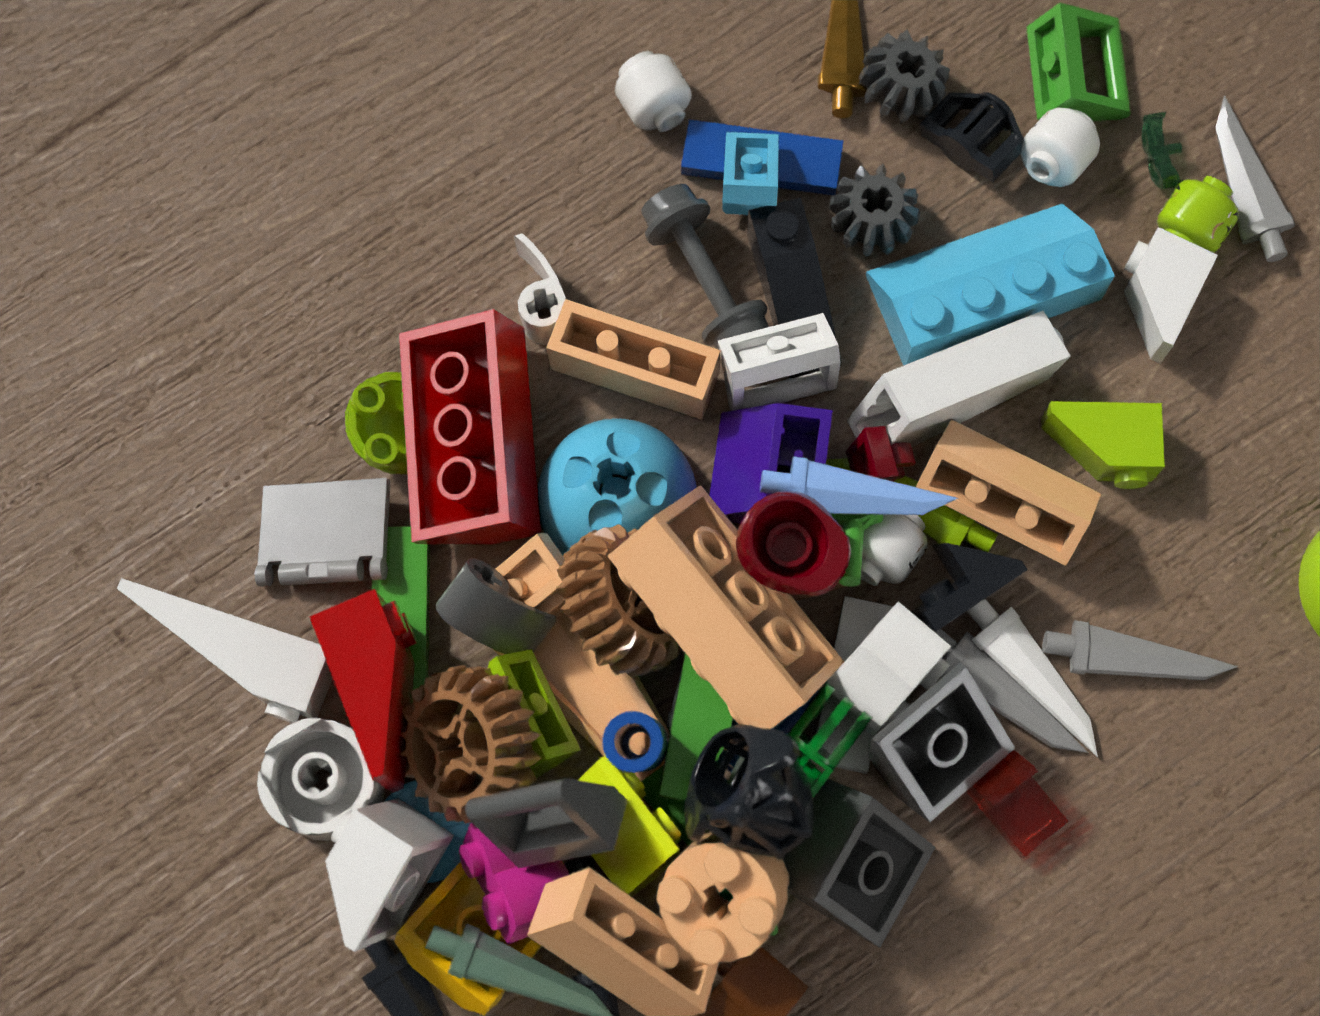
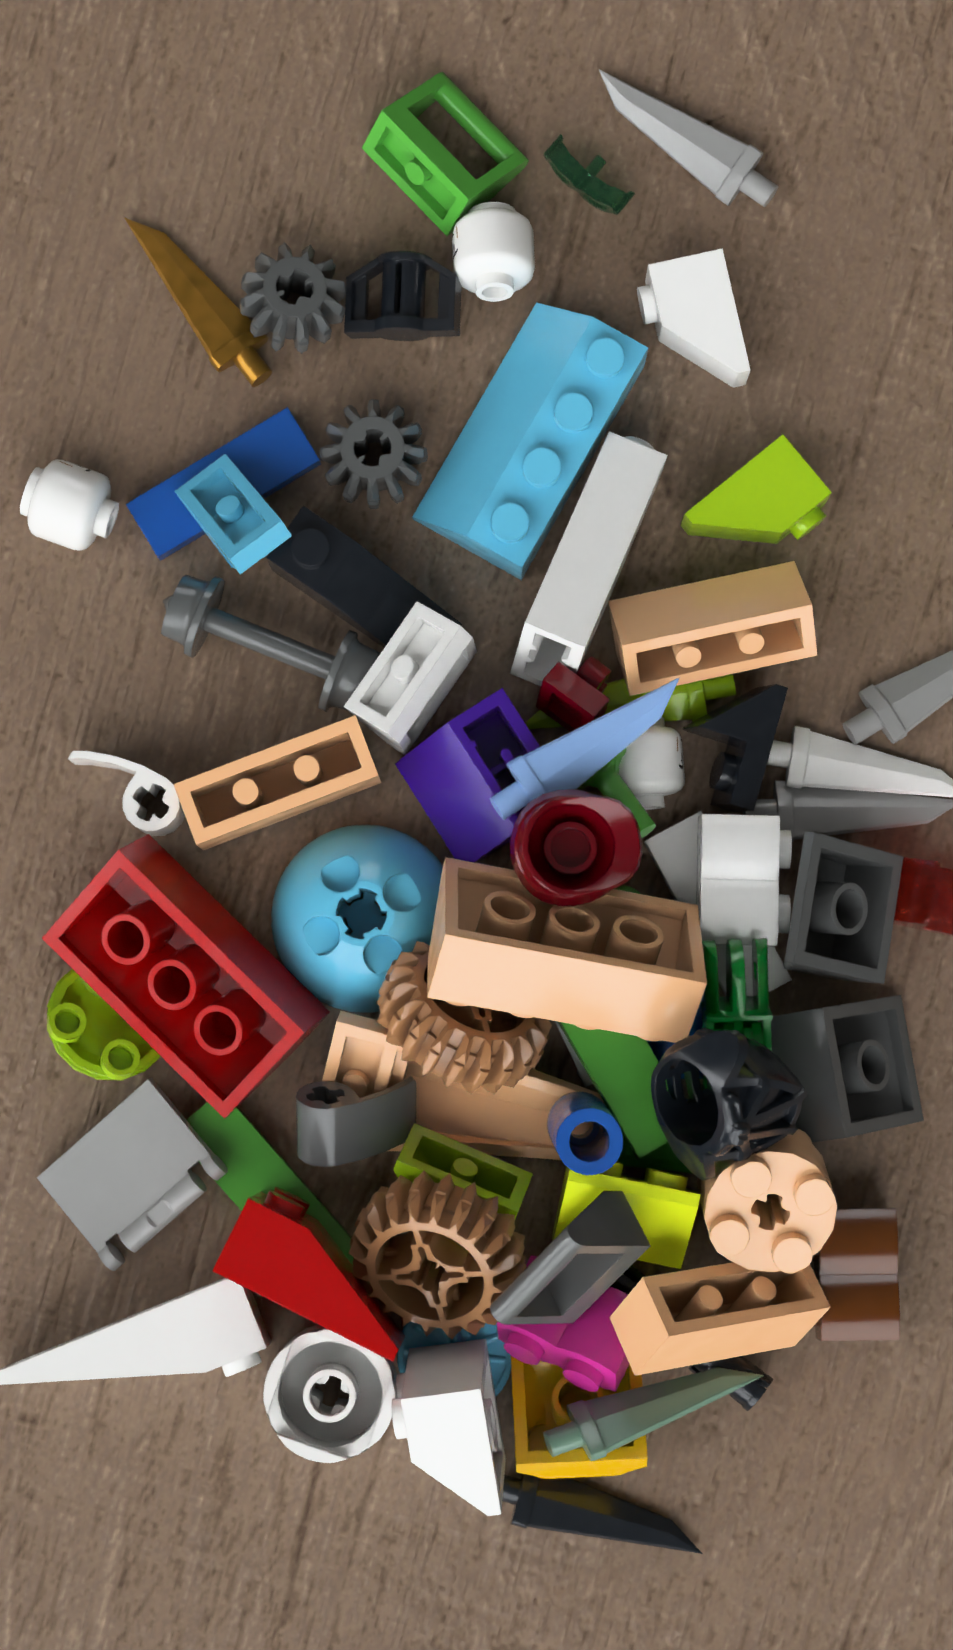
camera: 40 degrees left, 10 degrees up
(1200, 212) = (672, 217): lime head -> none

